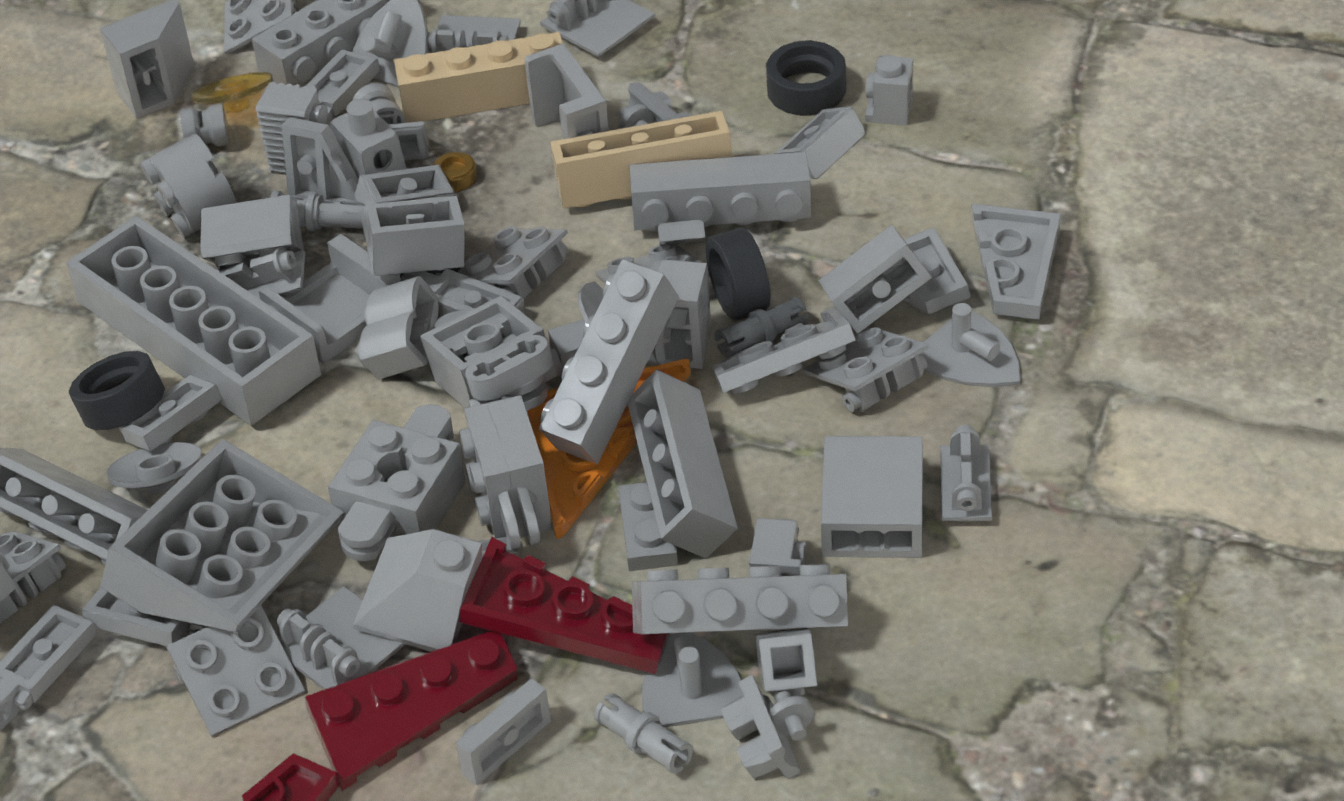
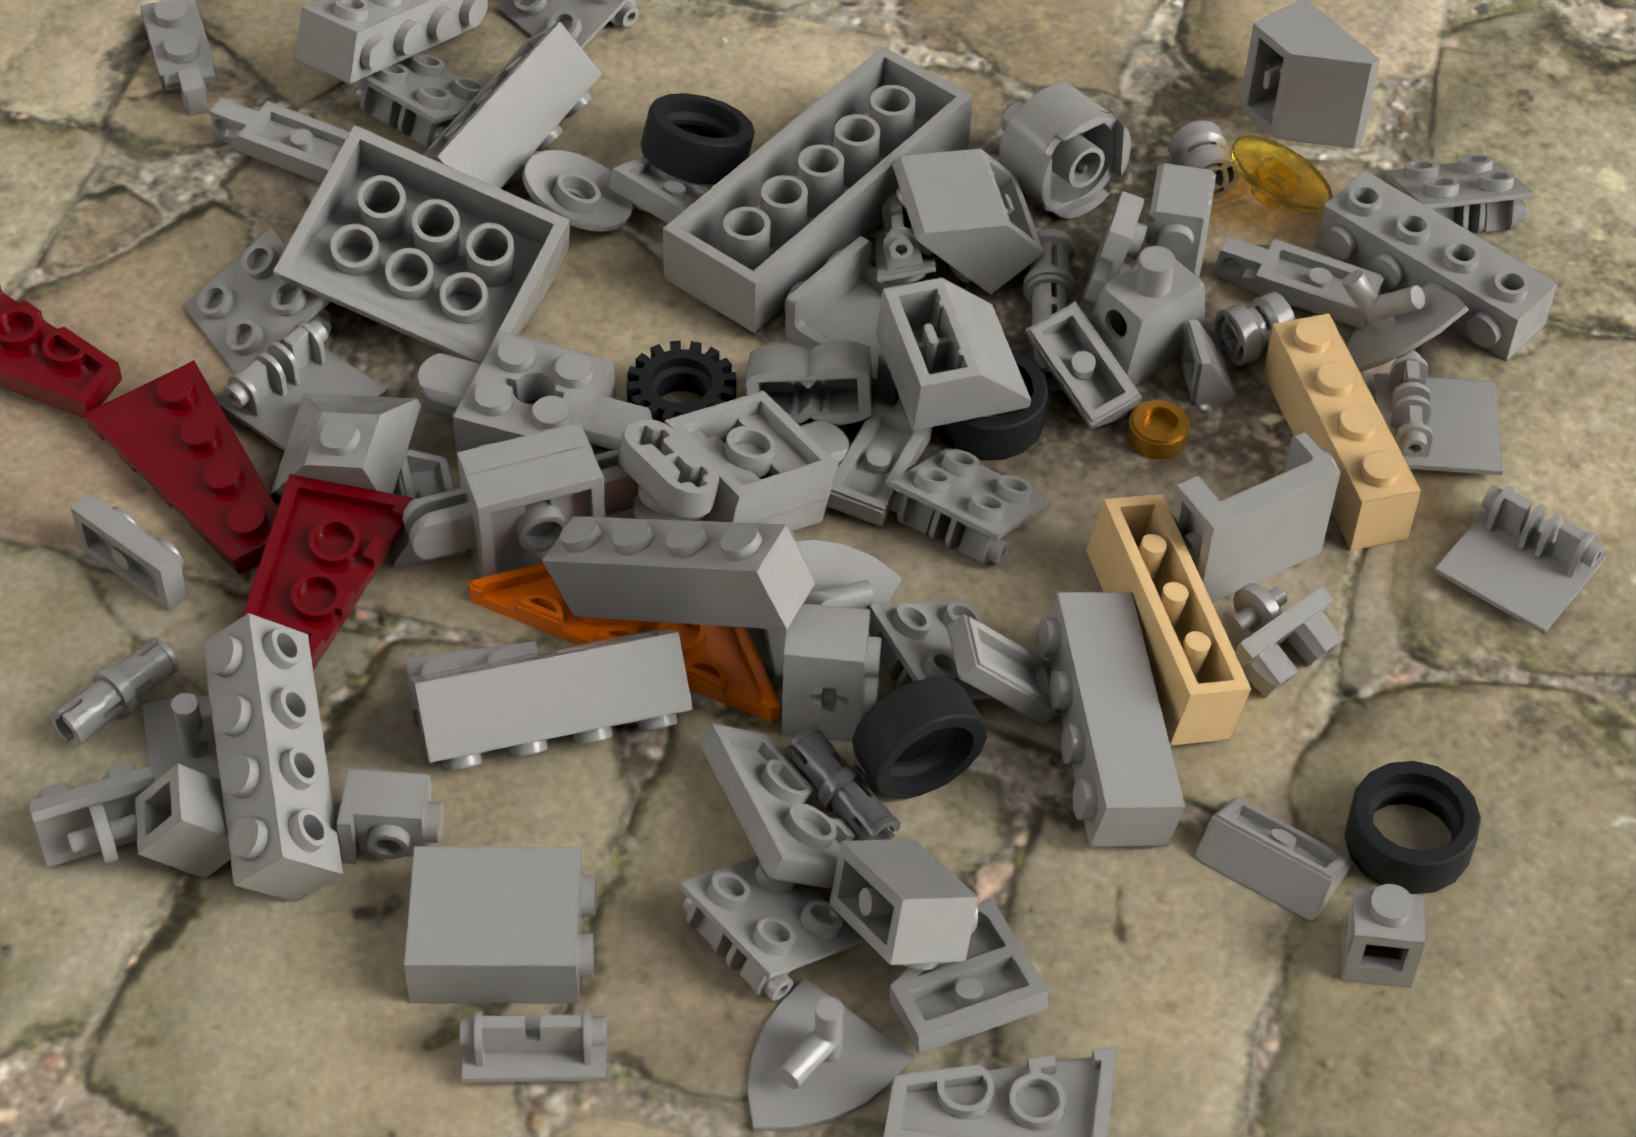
camera: 80 degrees right, 5 degrees up
(379, 391) = (680, 371): none -> black tyre

